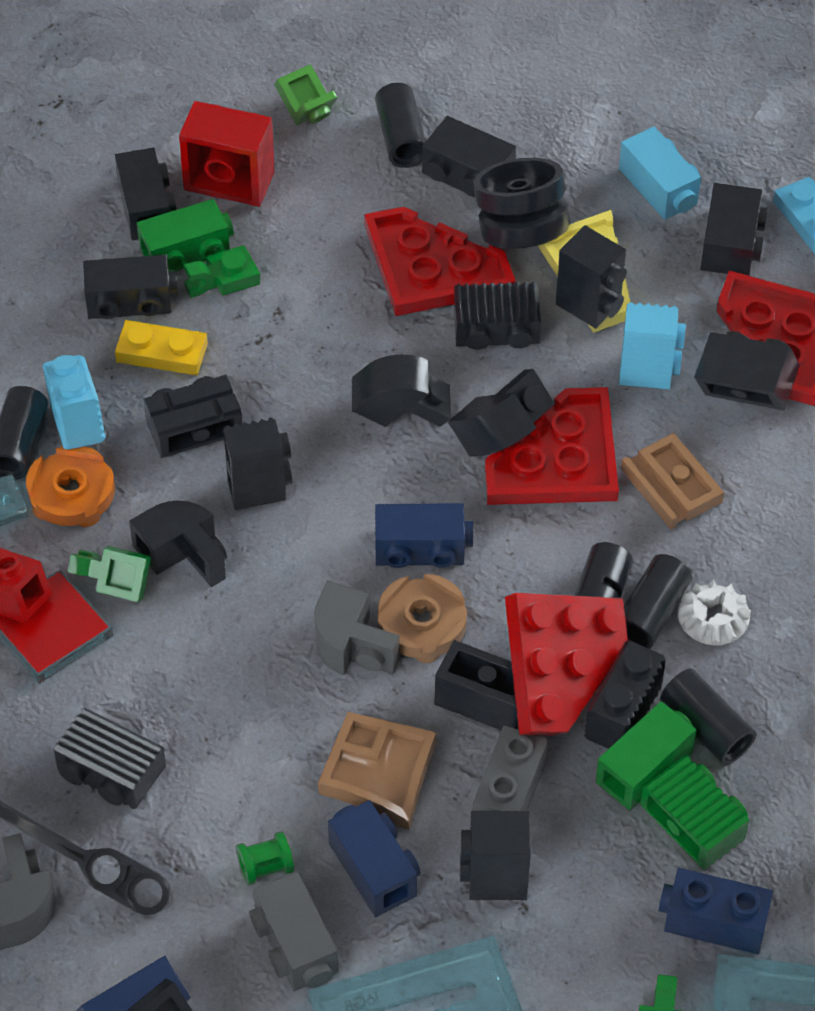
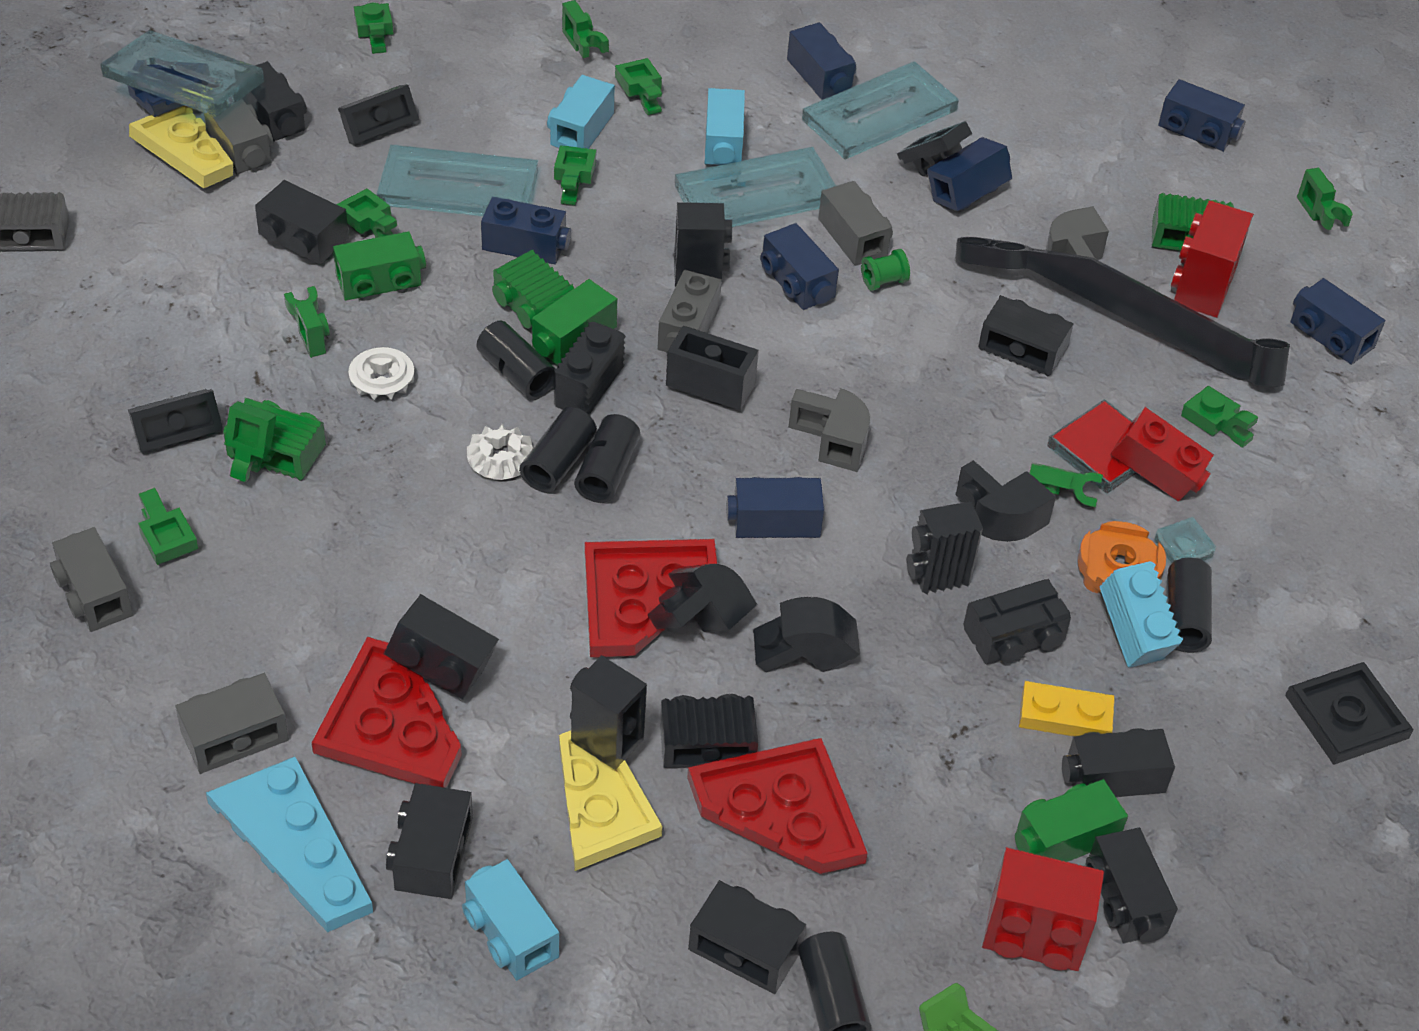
camera: 175 degrees right, 5 degrees down
(226, 270) = (1010, 794): green plate -> none
(379, 764) = (802, 330): medium nougat plate -> none
(423, 639) = (760, 461): medium nougat plate -> none
(521, 202) = (711, 834): black wheel -> none
(560, 655) = (650, 360): red plate -> none
(650, 346) = (542, 666): medium azure brick -> none
(672, 480) = (529, 562): medium nougat plate -> none

